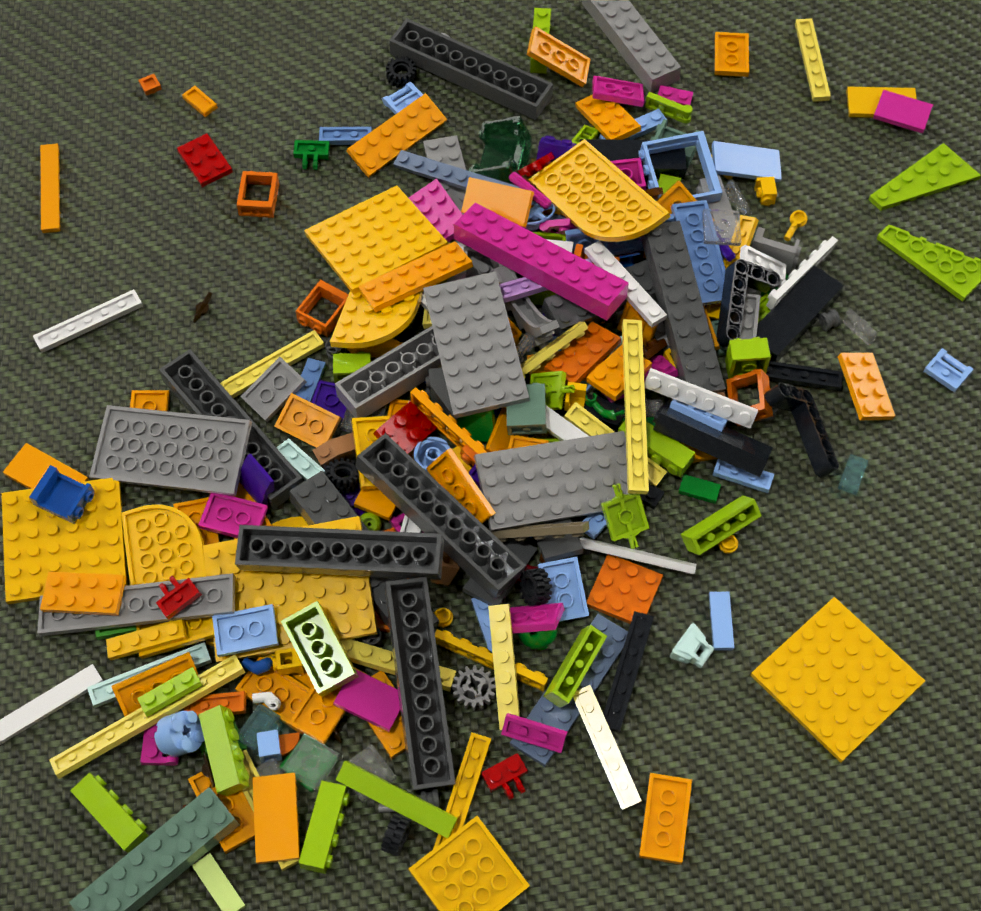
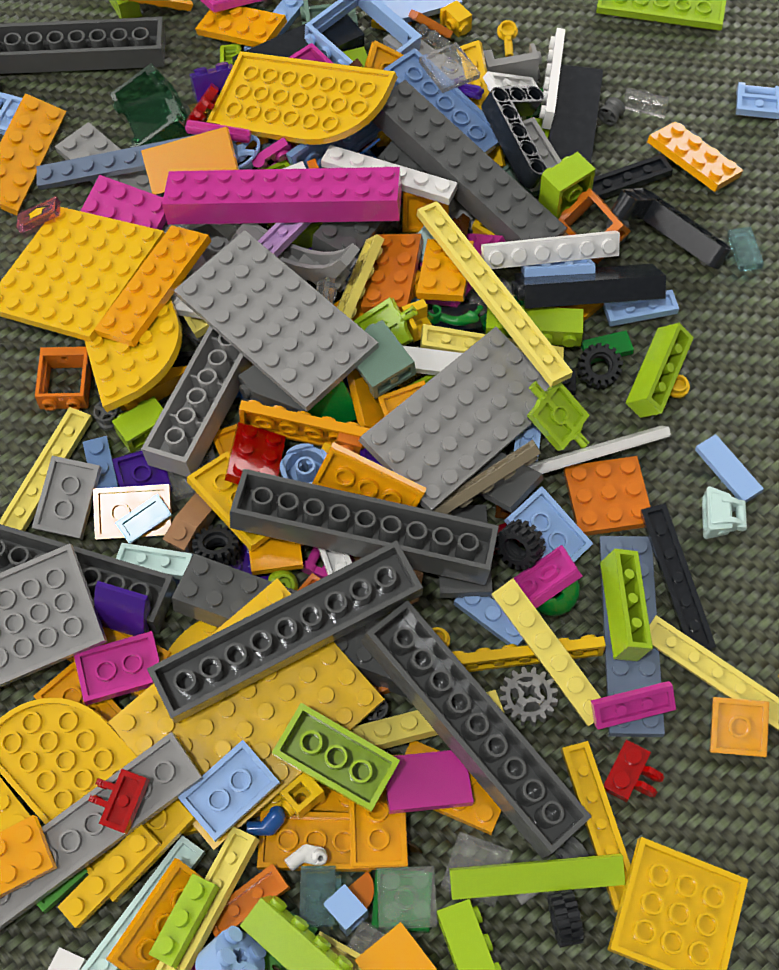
camera: 30 degrees left, 0 degrees up
(310, 430) = (143, 518): none -> tile
(379, 185) = (38, 214): none -> clear pink tile
(596, 790) = (739, 727): none -> light orange tile
(685, 487) = (609, 356): none -> black tyre
(741, 185) = (431, 24): none -> orange tile

